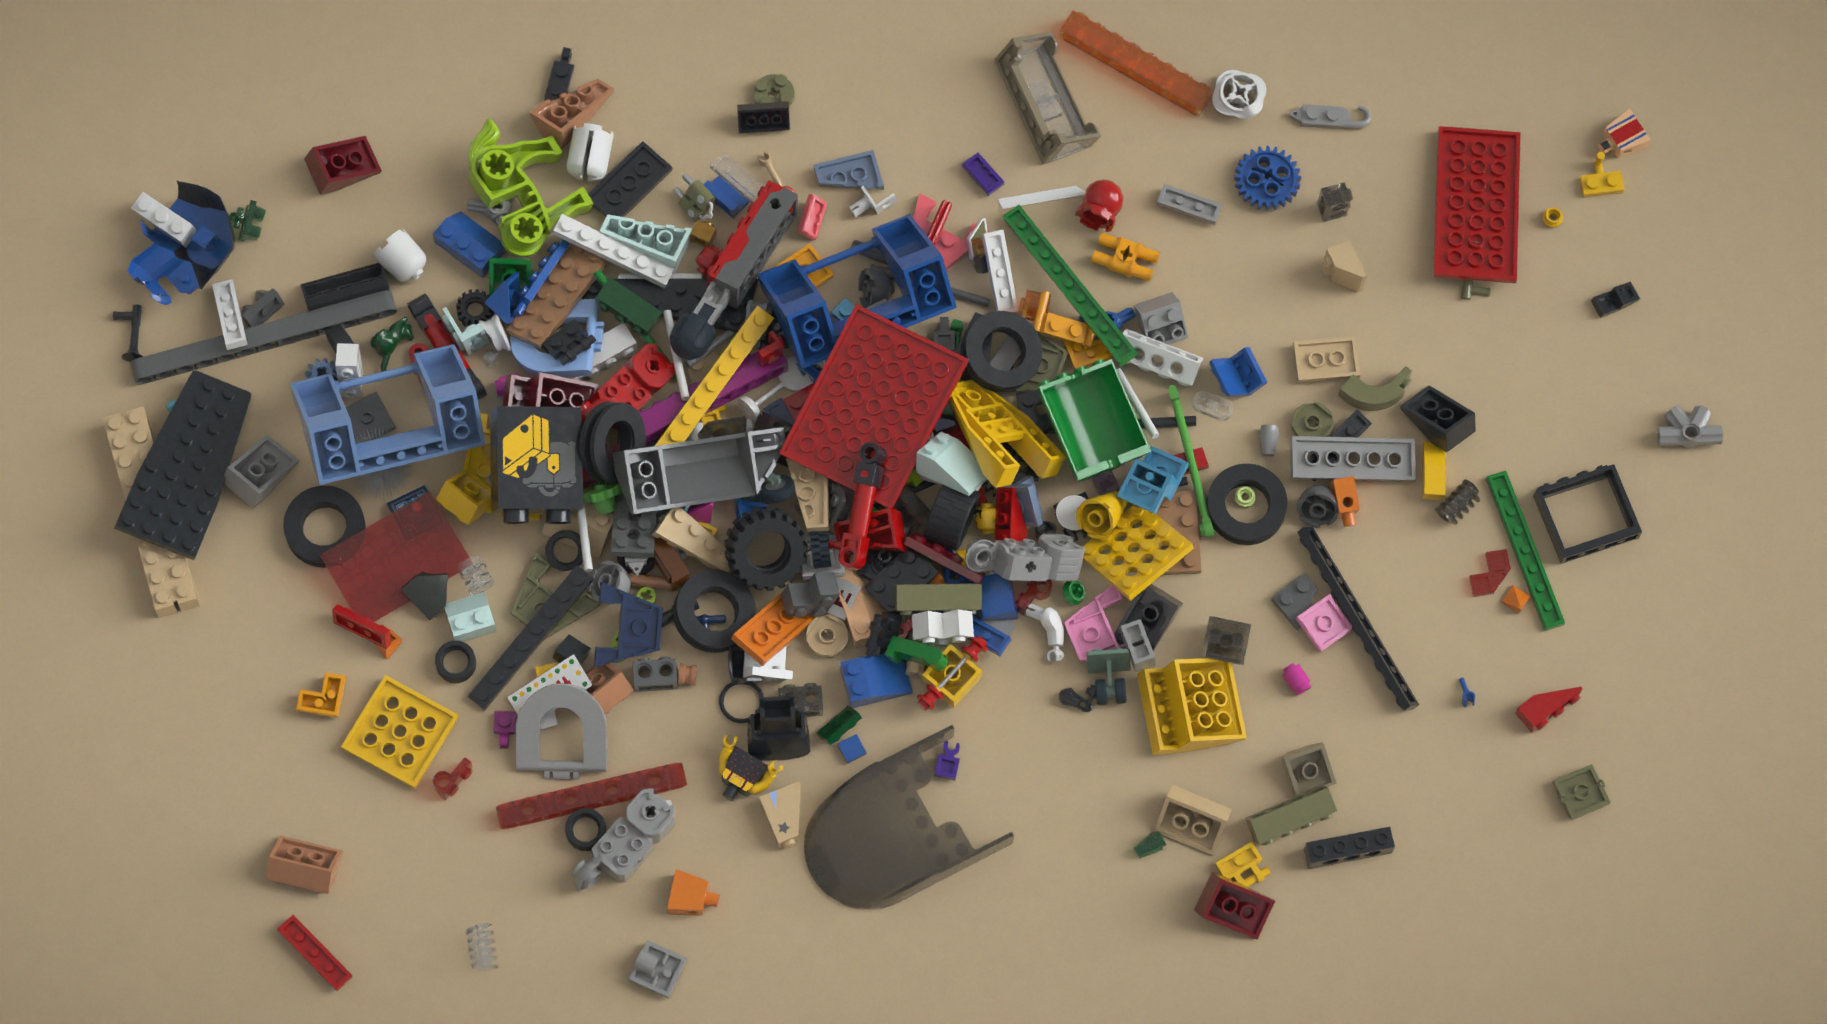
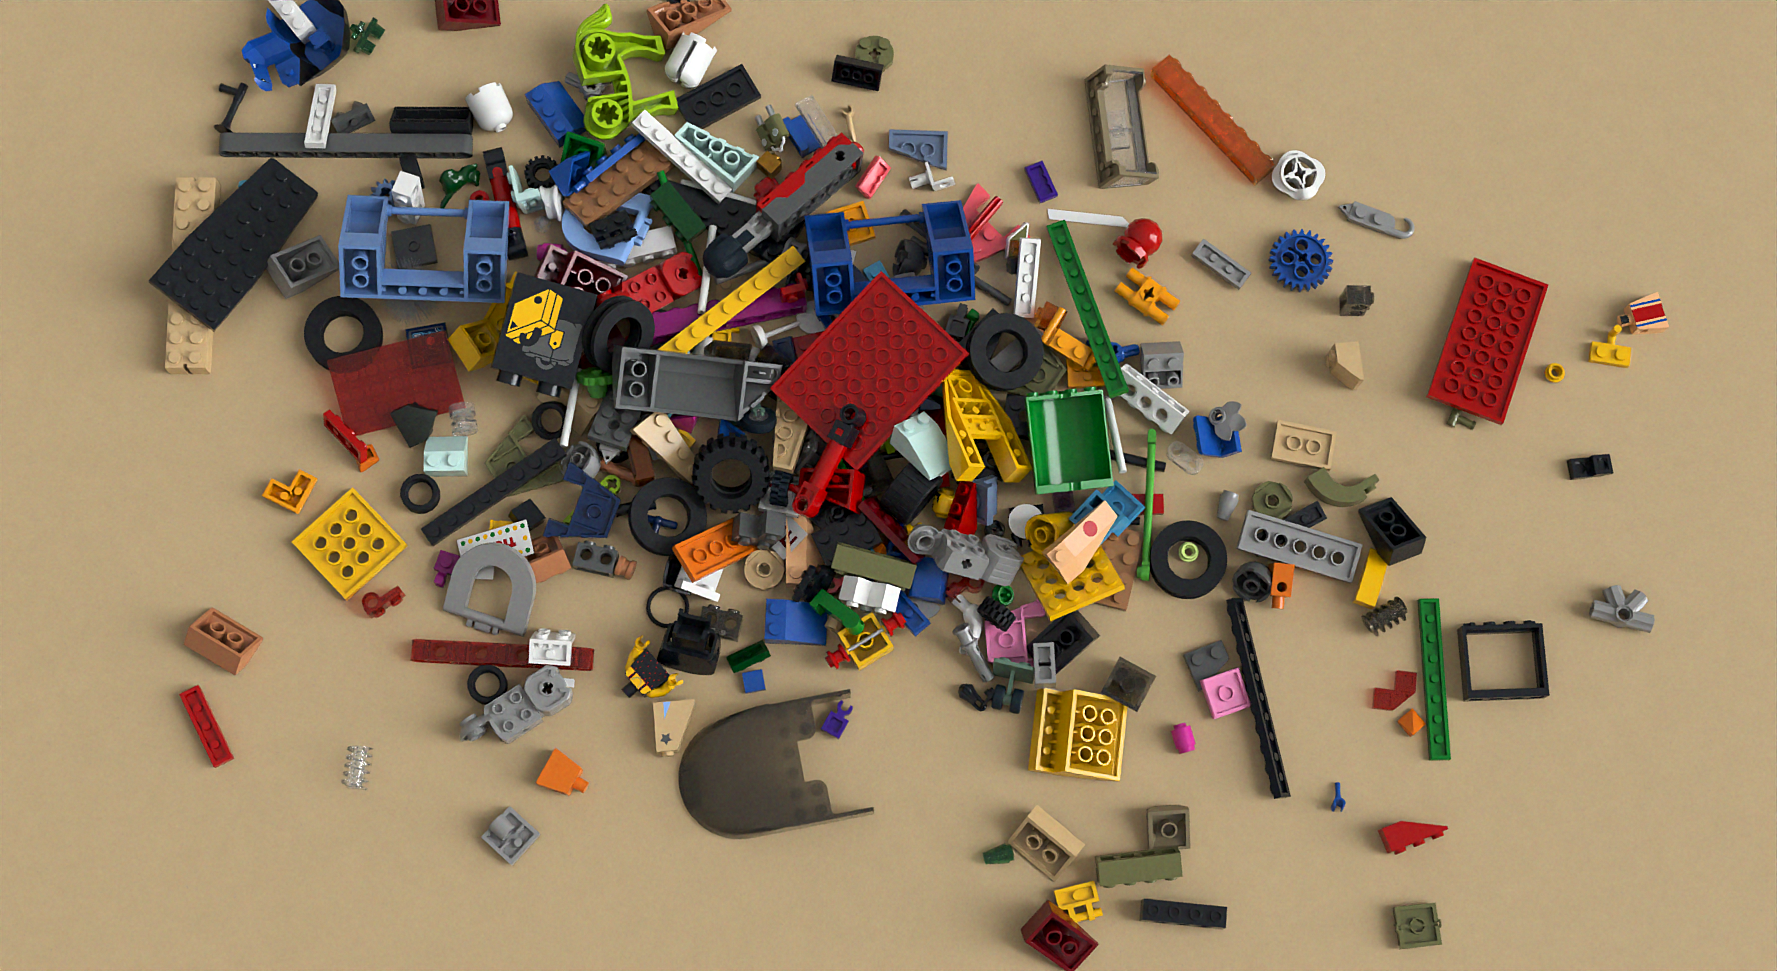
camera: 15 degrees right, 5 degrees up
(640, 772) = (551, 647): none -> white bracket
(1057, 648) = (970, 645): none -> light grey pin
(1074, 609) = (996, 613): none -> black tyre
(1135, 517) = (1077, 546): none -> light nougat wedge
(1246, 355) = (1230, 420): none -> light grey plate

